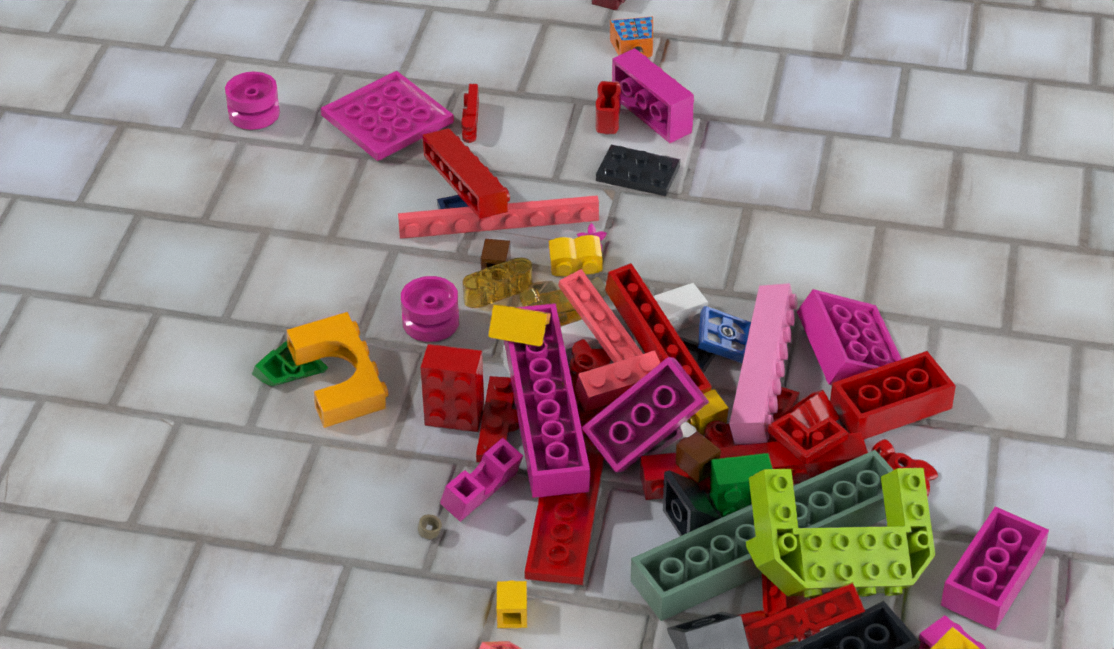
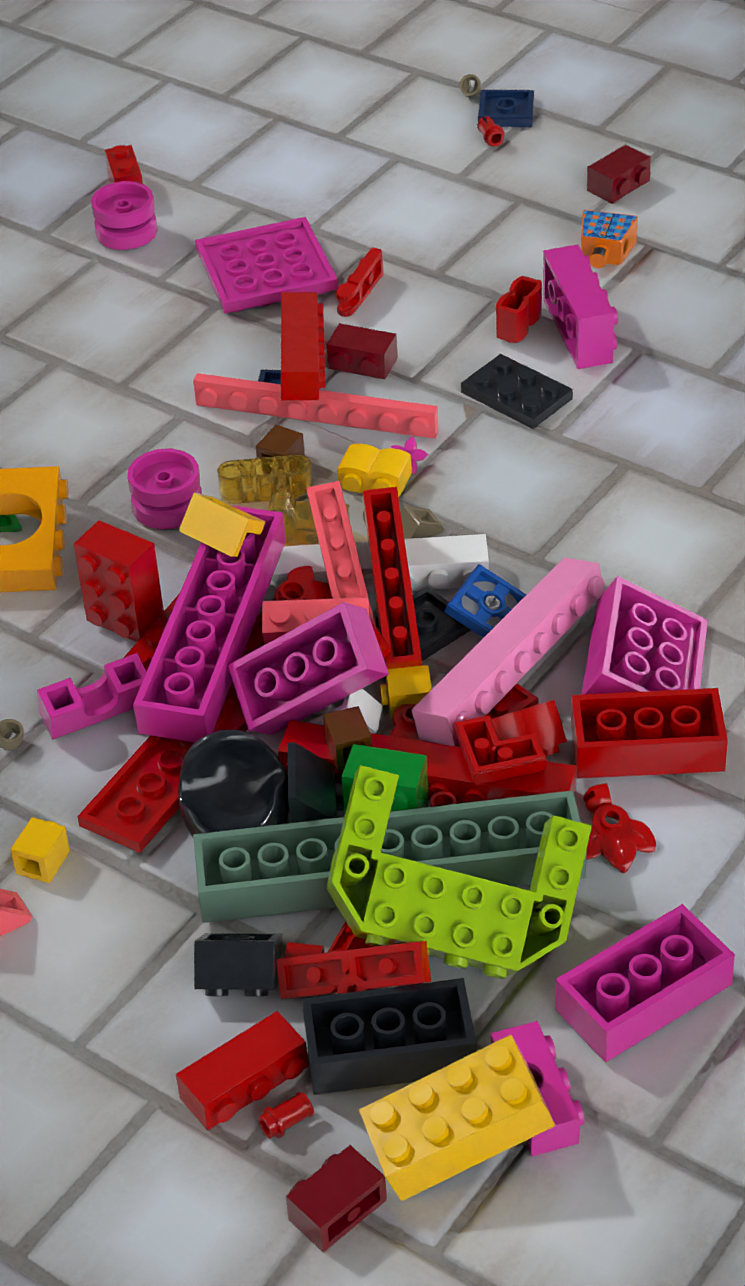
camera: 25 degrees right, 0 degrees up
(224, 63) = (122, 164): none -> red brick
(510, 165) = (362, 351): none -> dark red brick
(631, 517) = (232, 784): none -> black piece

